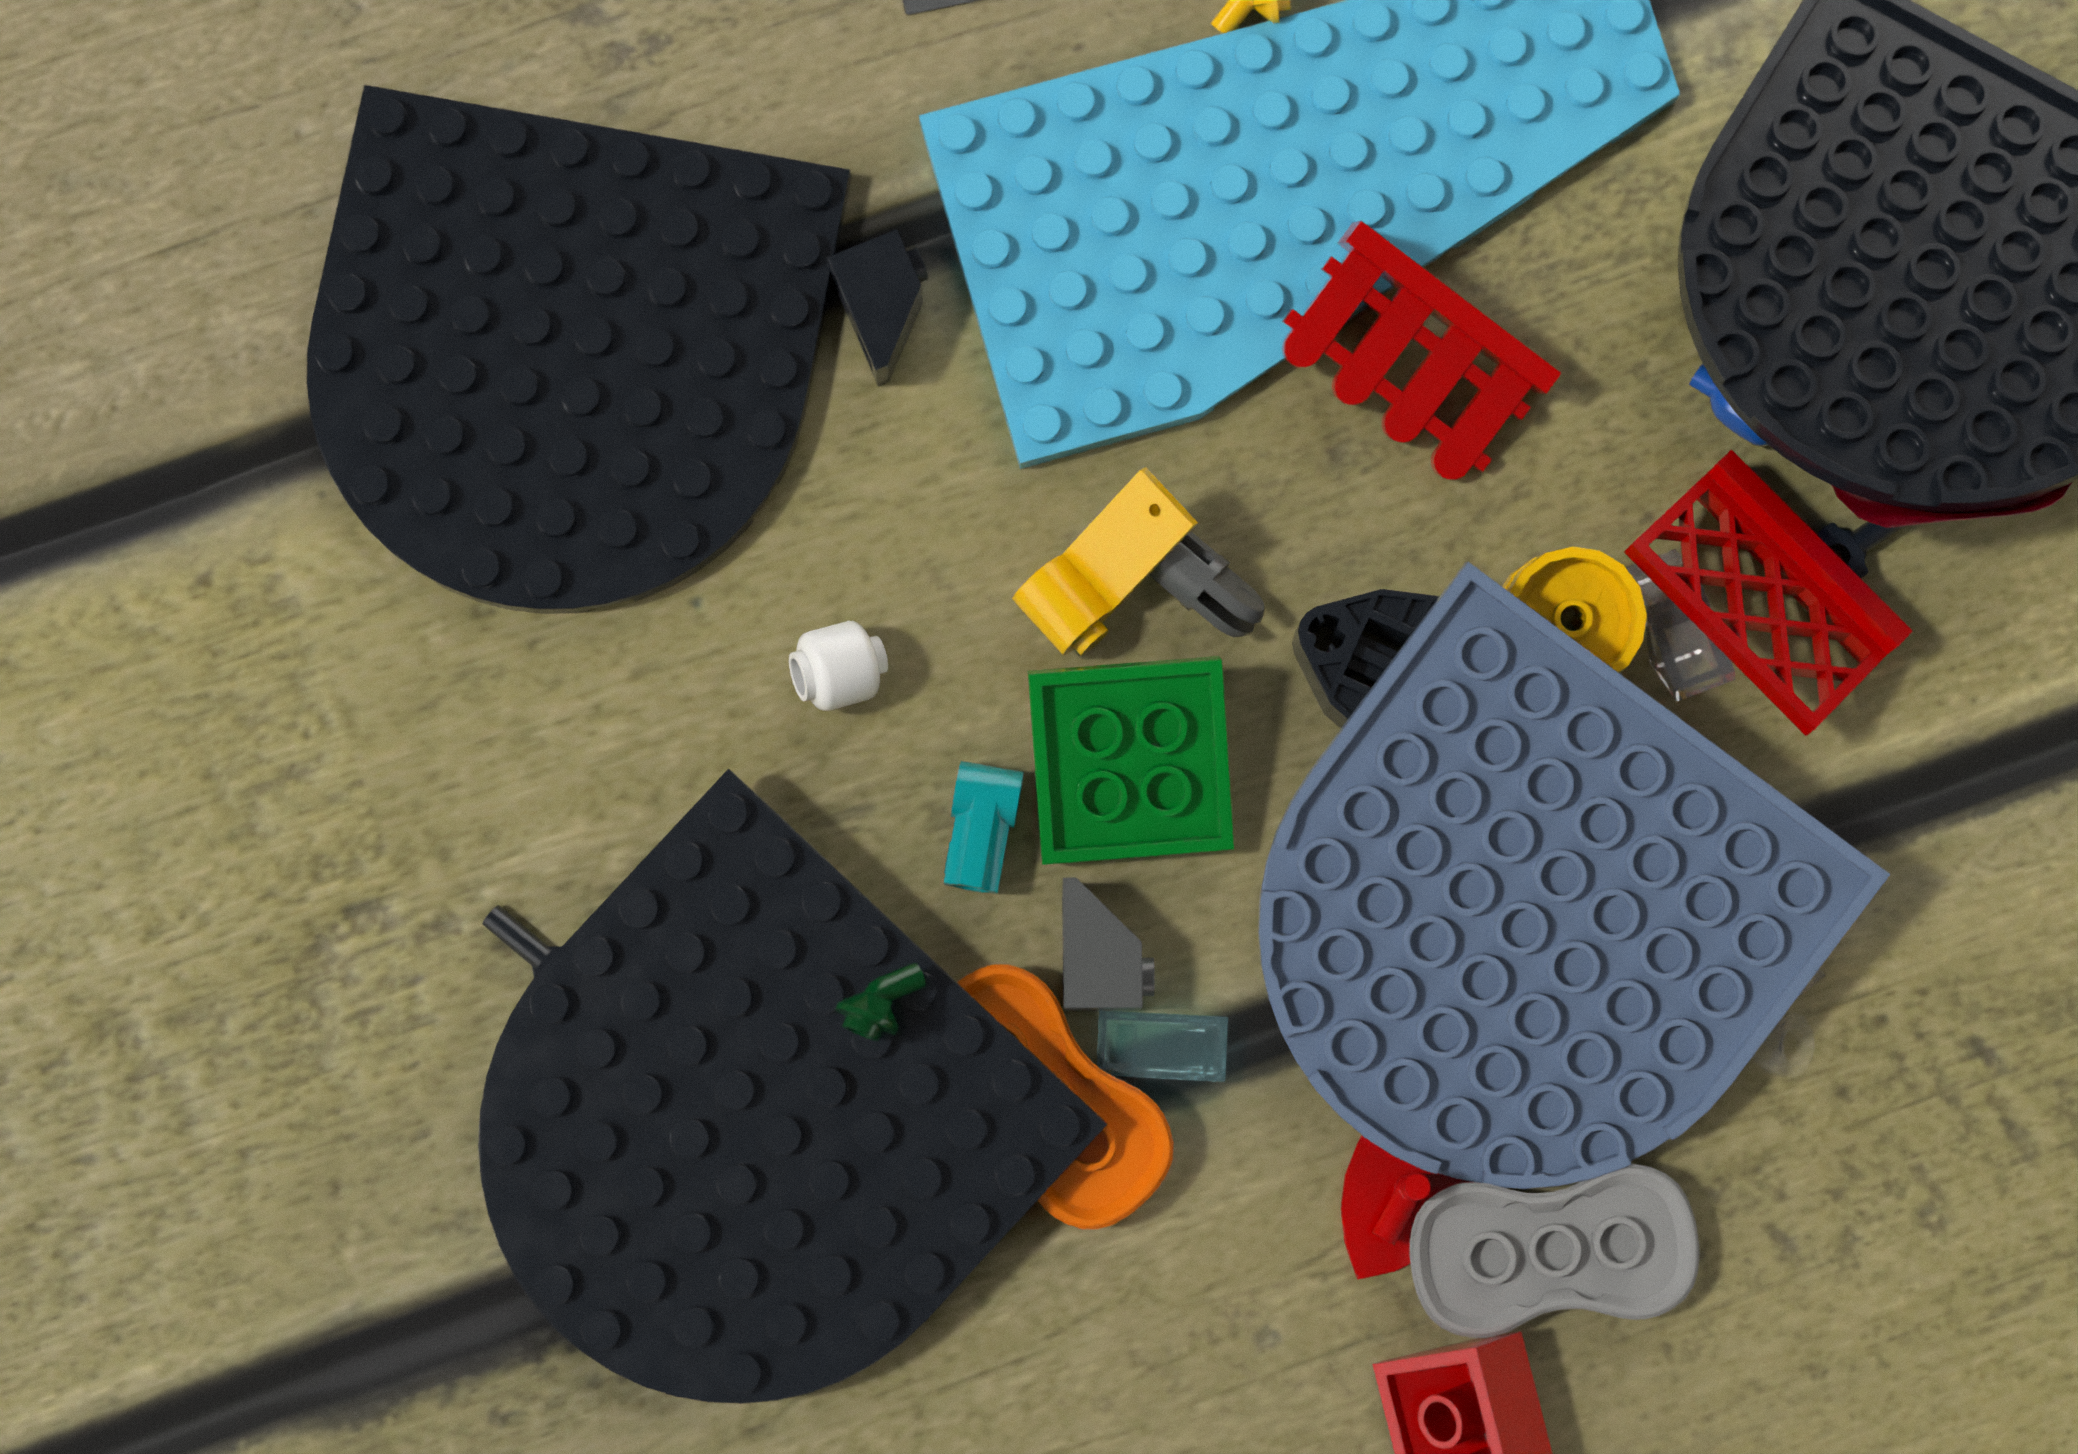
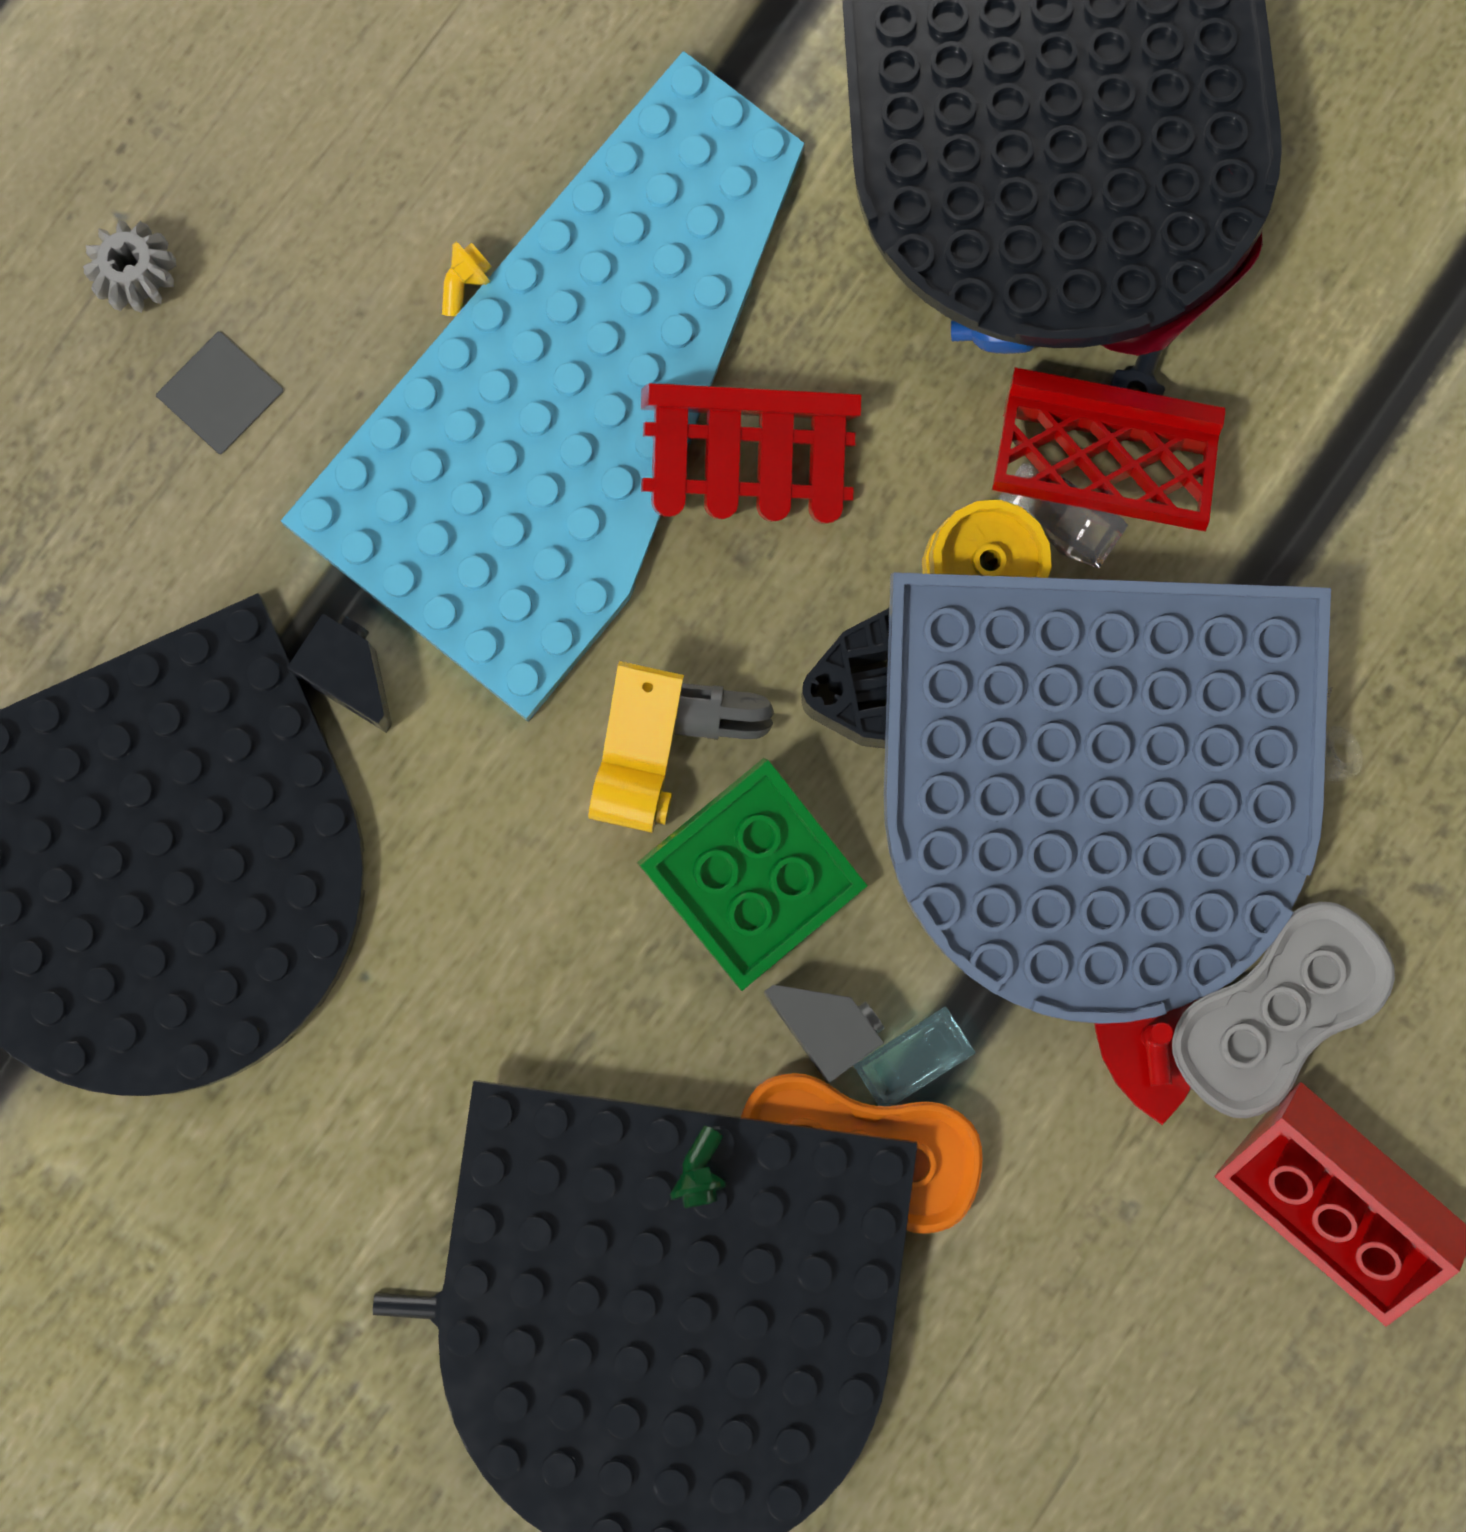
camera: 30 degrees left, 0 degrees up
(837, 665) = (498, 952): white head -> none
(983, 812) = (675, 983): teal piece -> none

